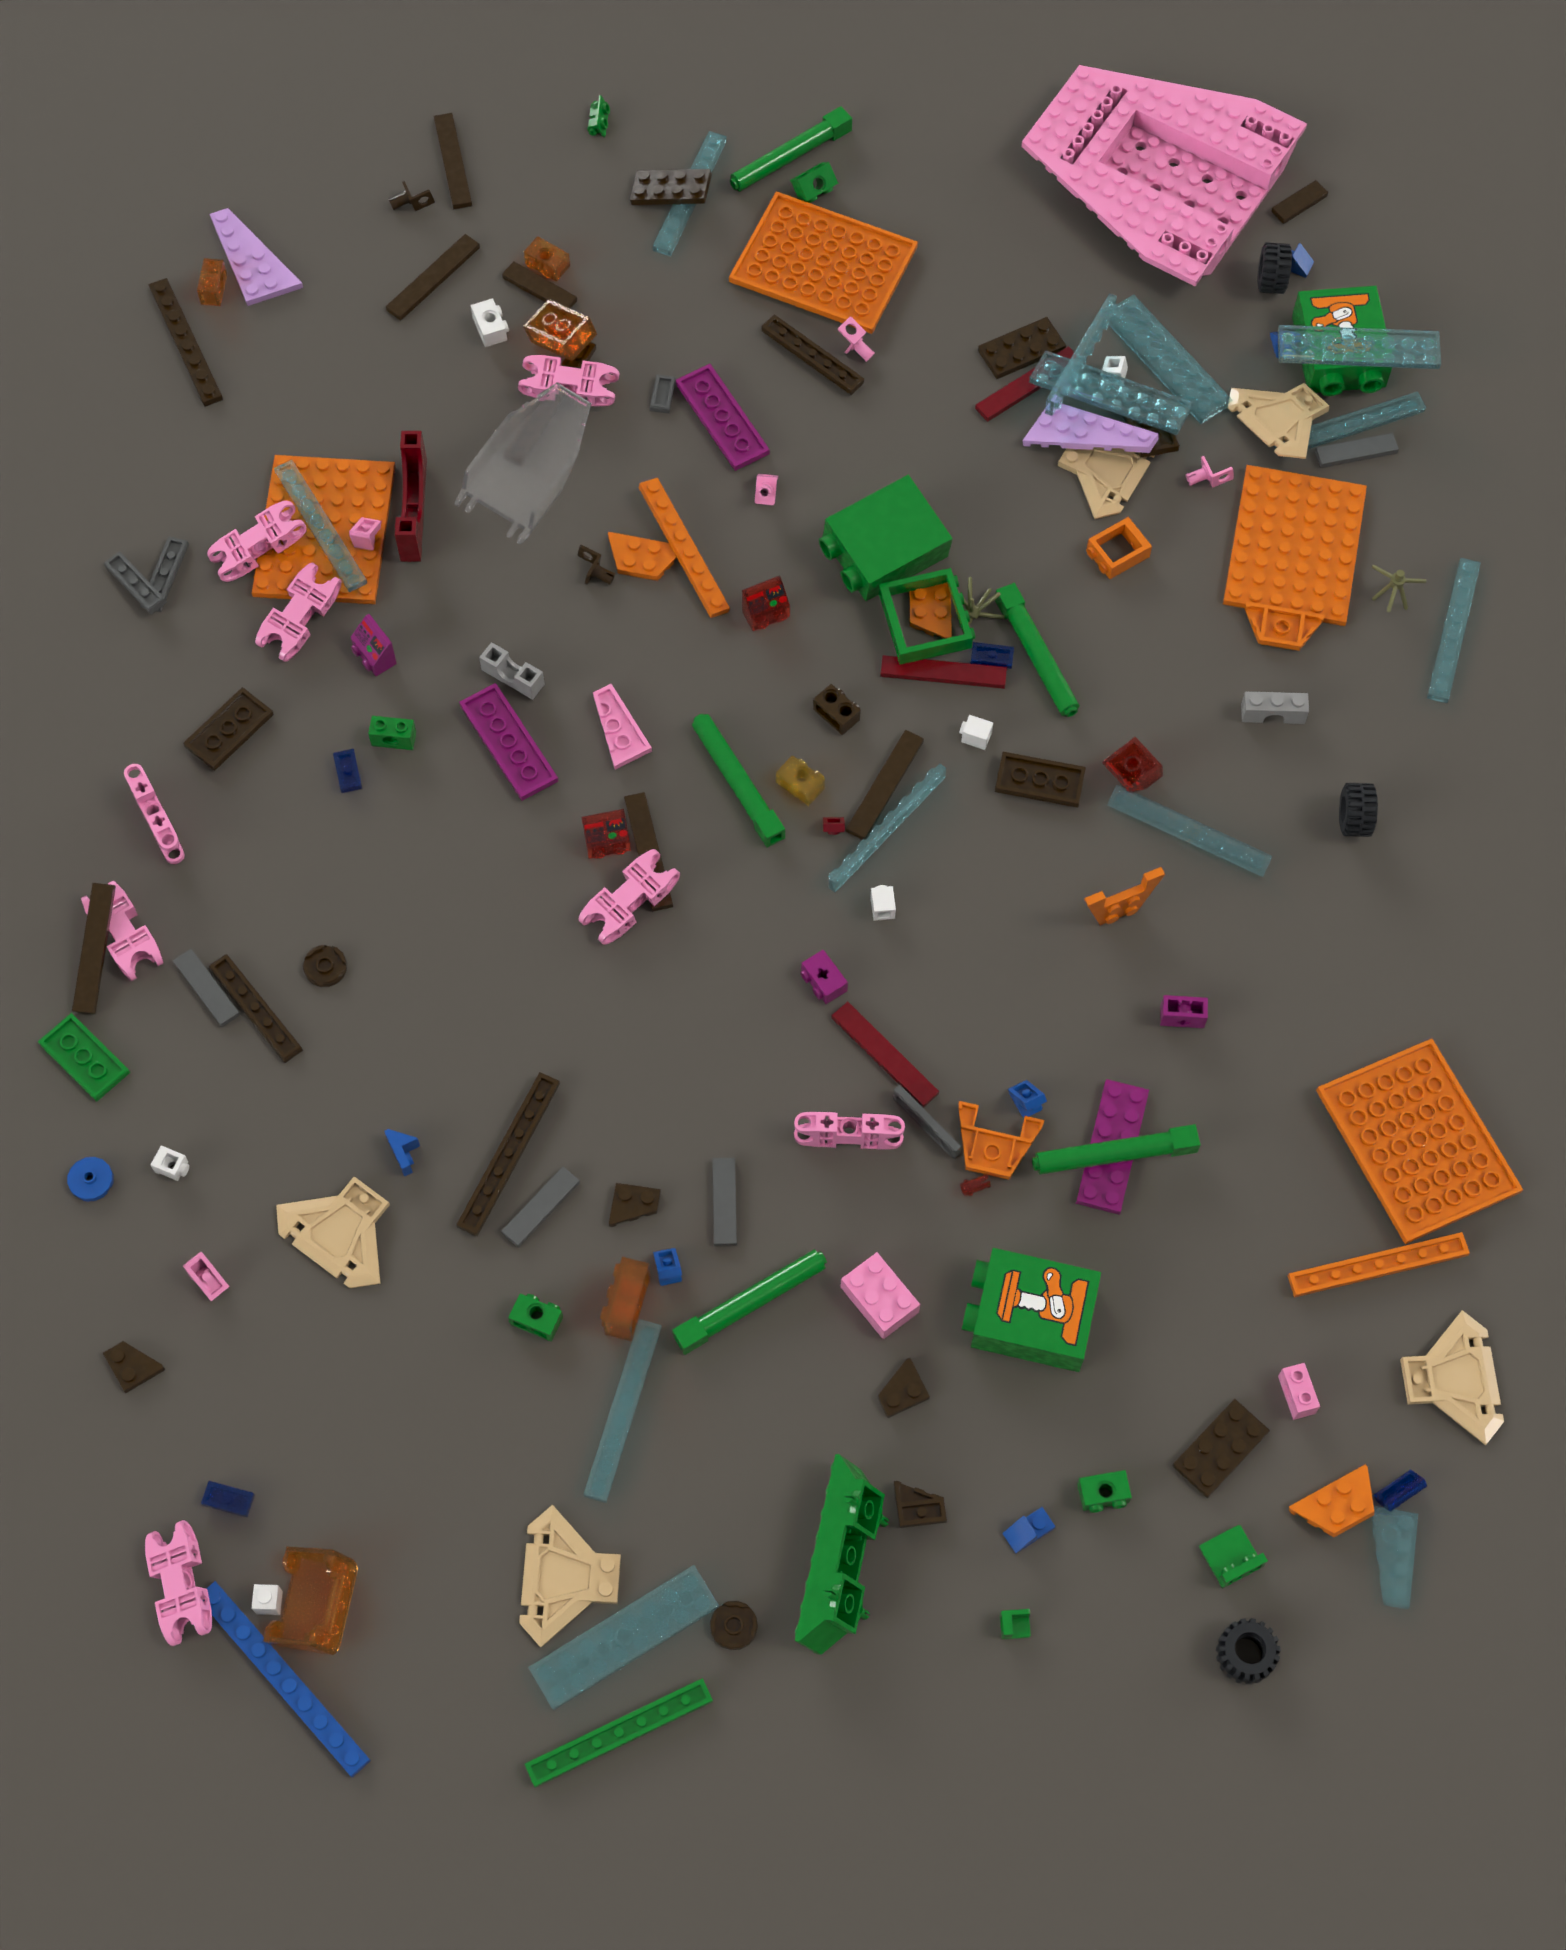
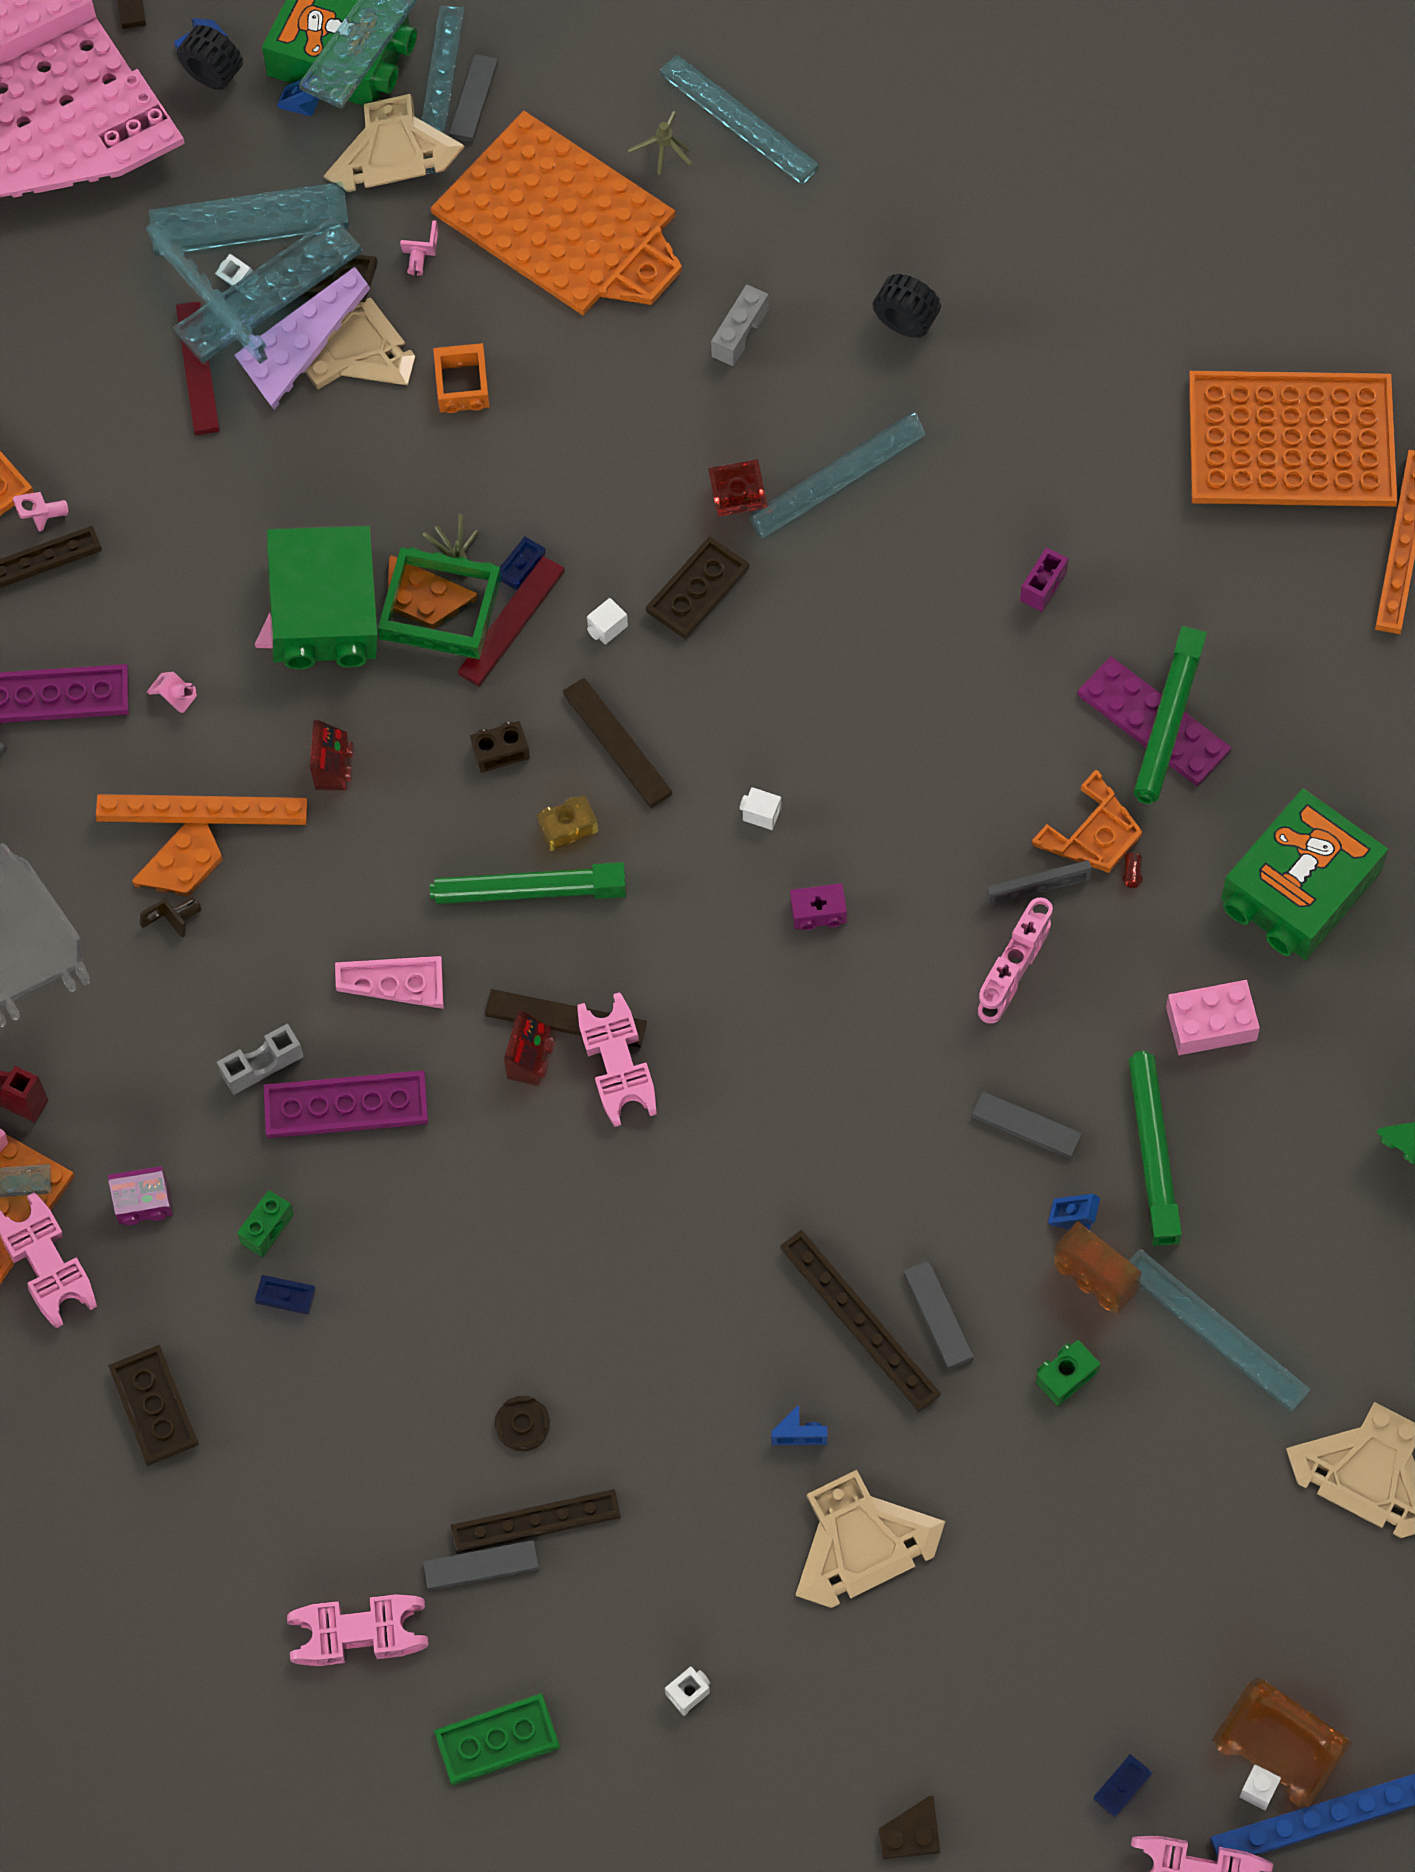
camera: 60 degrees left, 0 degrees up
(93, 948) = (369, 1668): dark brown tile -> none
(96, 1187) = (657, 1805): blue plate -> none
(154, 813) = (248, 1530): bright pink piece -> none
(205, 1276) = (850, 1703): bright pink slope -> none
(633, 1202) = (981, 1218): dark brown wing -> none
(833, 825) = (640, 814): dark red plate -> none
(885, 1054) = (936, 889): dark red tile -> none
(891, 823) = (675, 771): clear light blue plate -> none
(903, 1390) = (1324, 1045): dark brown wing -> none
(1013, 608) = (538, 515): green brick -> none
(1021, 347) = (146, 352): dark brown plate -> none
(1027, 1098) = (1061, 773): blue slope -> none
(1126, 902) = (895, 565): orange wing -> none

